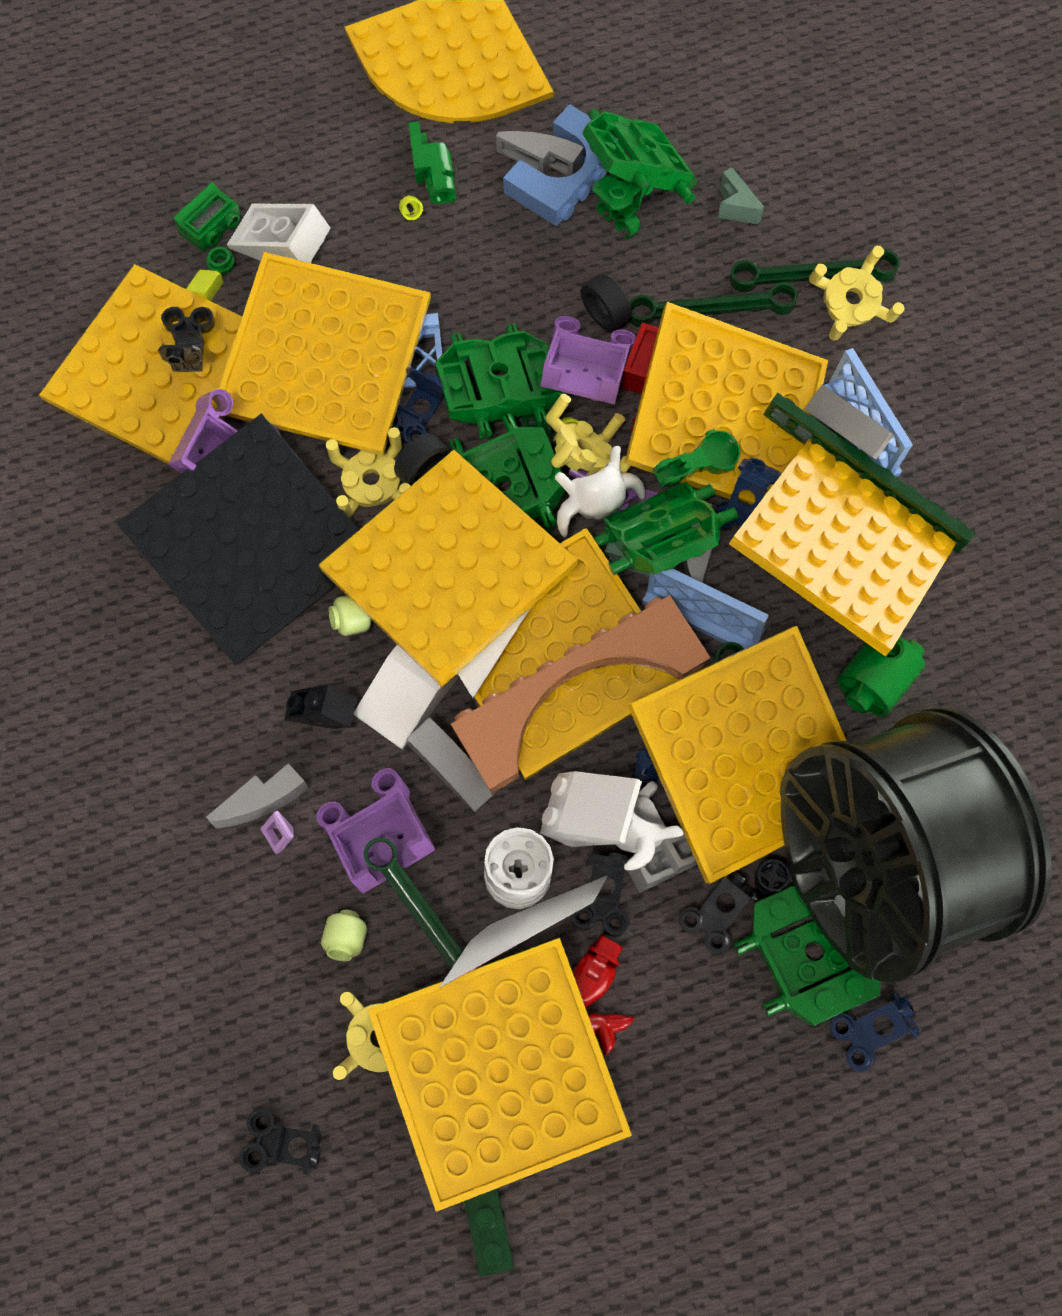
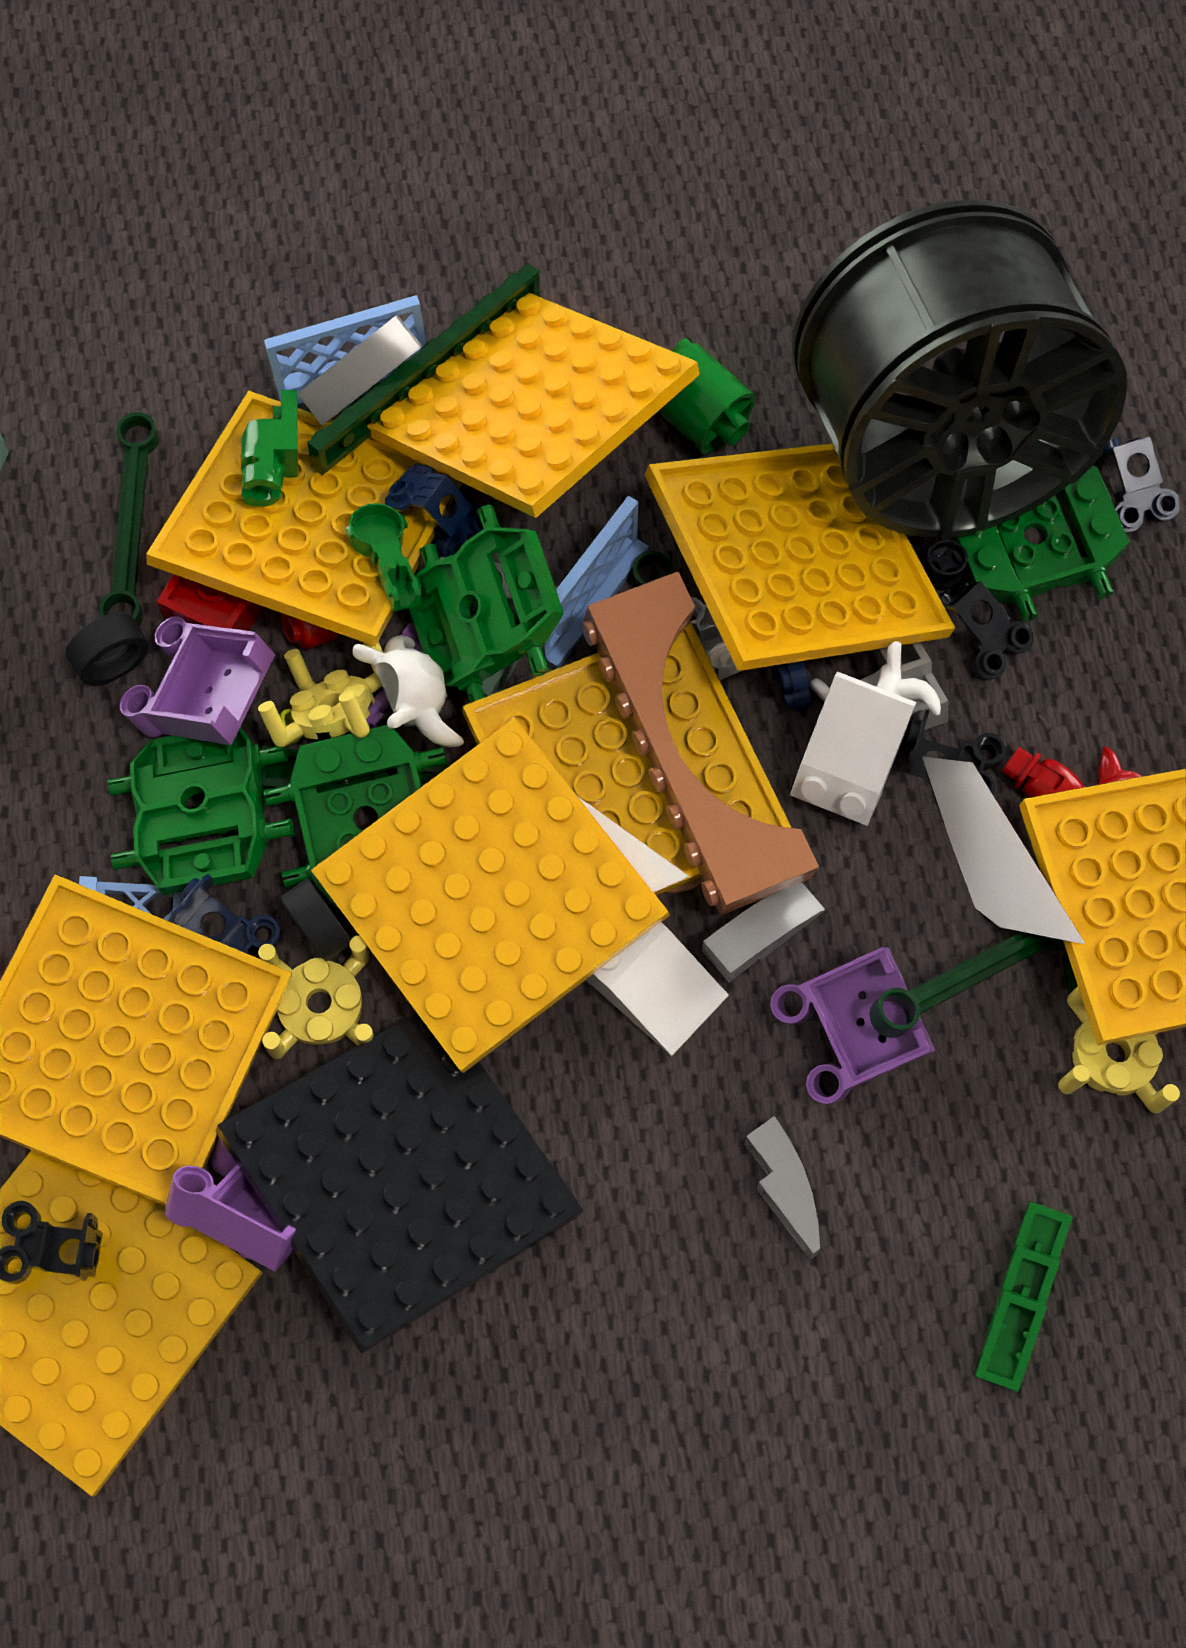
camera: 85 degrees left, 0 degrees up
(191, 976) = (1023, 1296): none -> green slope
(287, 831) = (840, 1152): lavender slope -> none
(321, 707) = (663, 1095): black slope -> none
(344, 935) = (983, 1085): yellowish green head -> none
(348, 617) = (534, 1046): yellowish green head -> none
(518, 849) = (922, 830): white wheel -> none
(771, 374) = (270, 453): none -> green plate
(801, 272) = (103, 390): dark green piece -> none
(864, 285) = (151, 327): light yellow plate -> none

